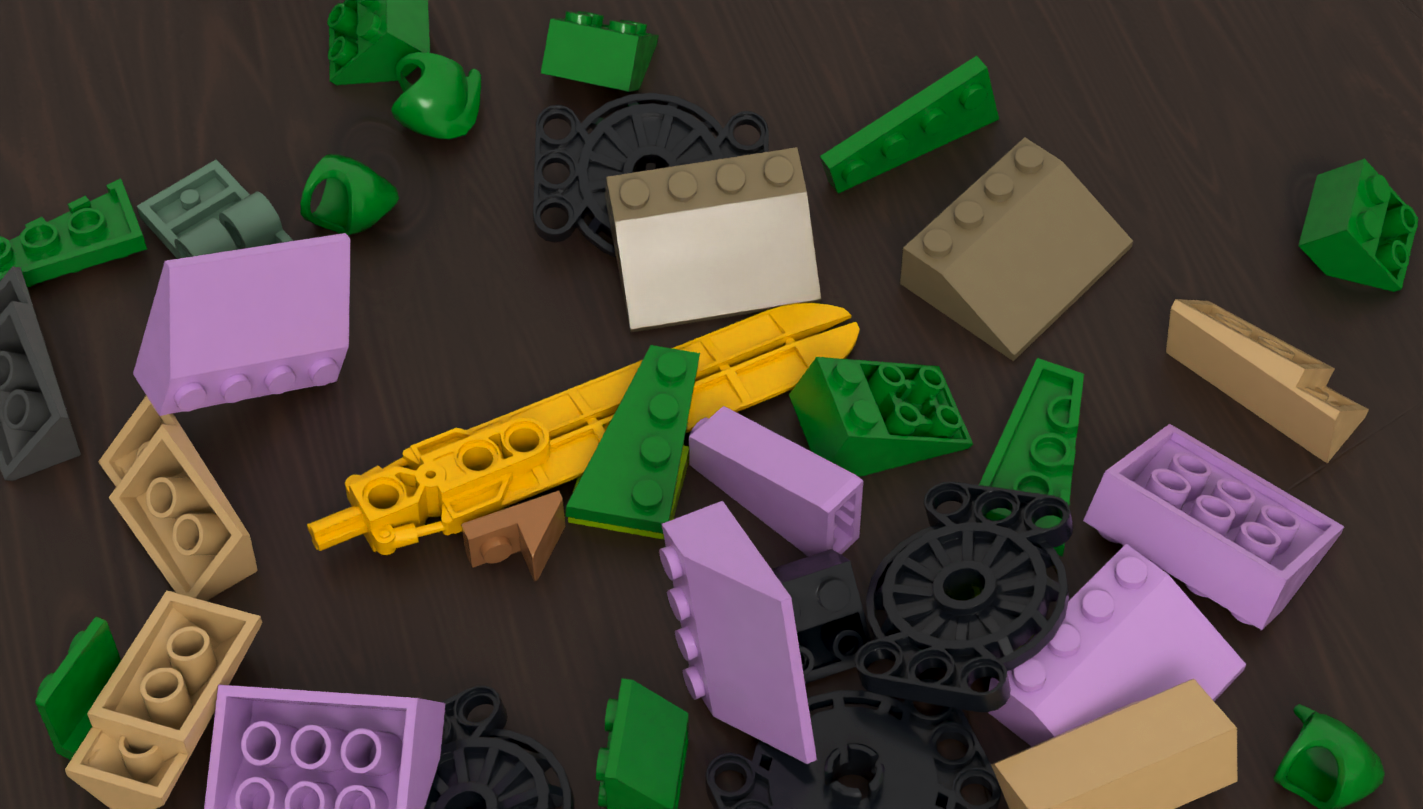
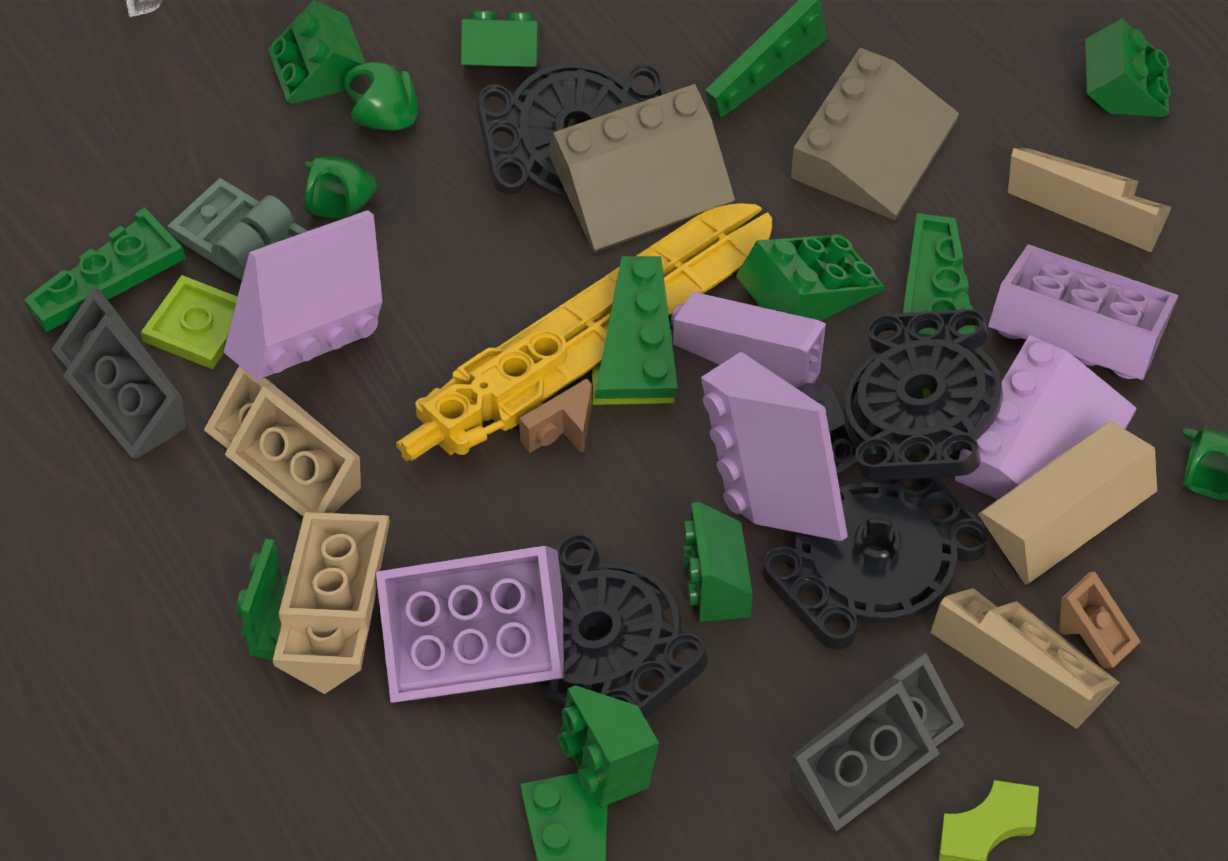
camera: 15 degrees left, 0 degrees up
(116, 325) = (192, 322): none -> lime tile

